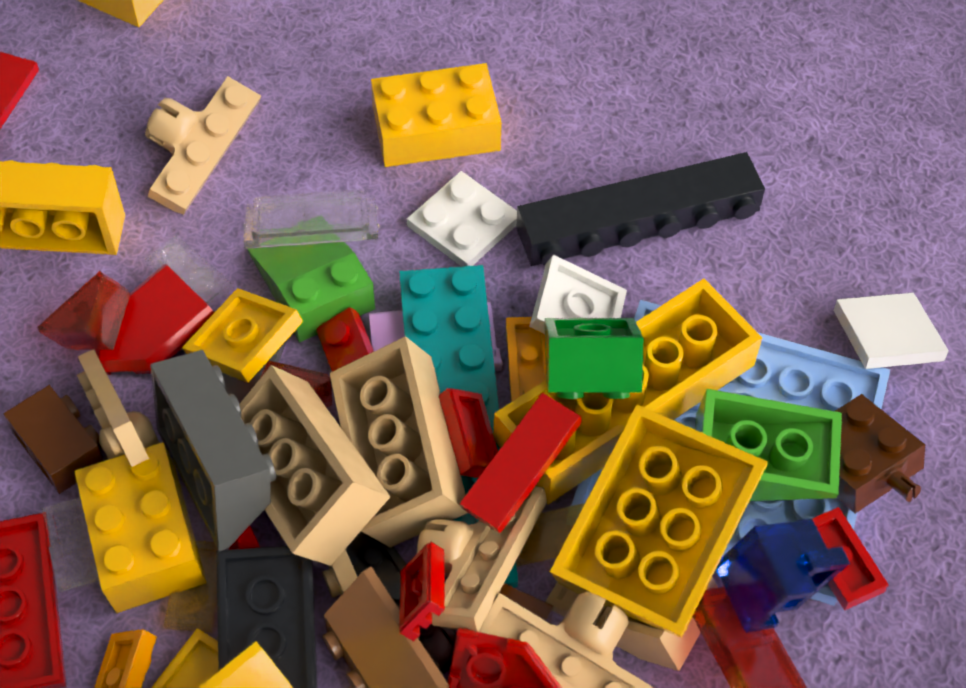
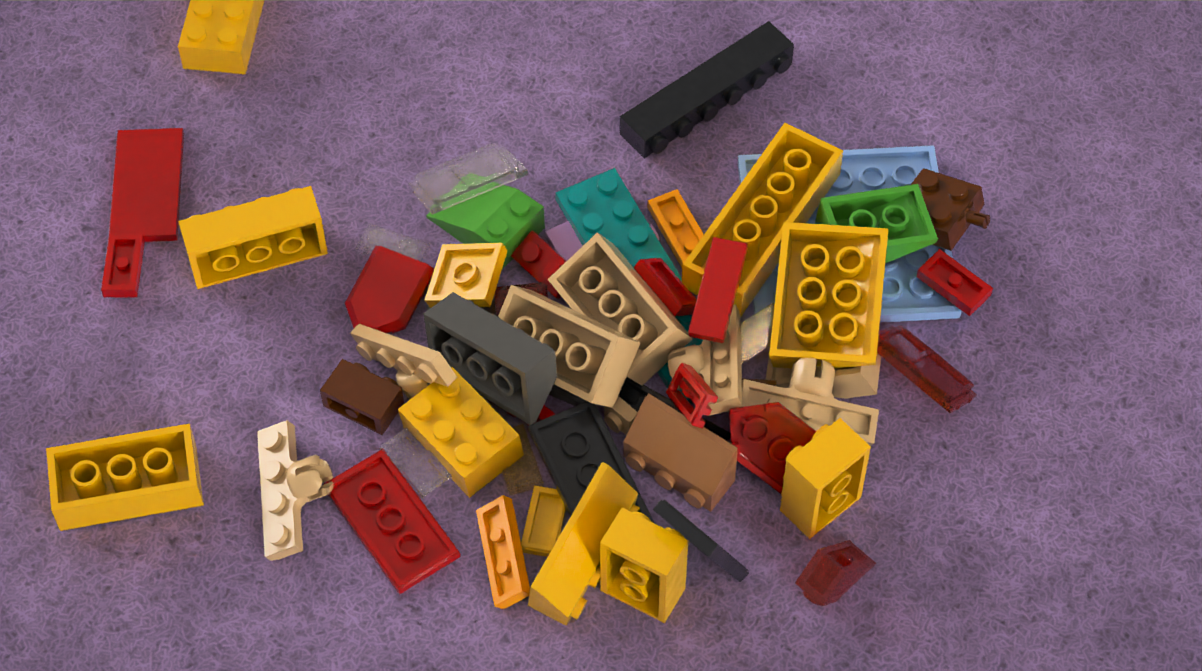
camera: 20 degrees left, 0 degrees up
(89, 316) = (343, 303): clear red slope -> none
(196, 141) = (345, 147): tan plate -> none
(436, 114) = (521, 67): yellow brick -> none
(463, 220) = (579, 140): white plate -> none
(574, 293) = (696, 175): white plate -> none
(593, 357) = (736, 201): green slope -> none
(777, 571) = (918, 302): clear blue plate -> none
(890, 330) = (922, 118): white tile -> none

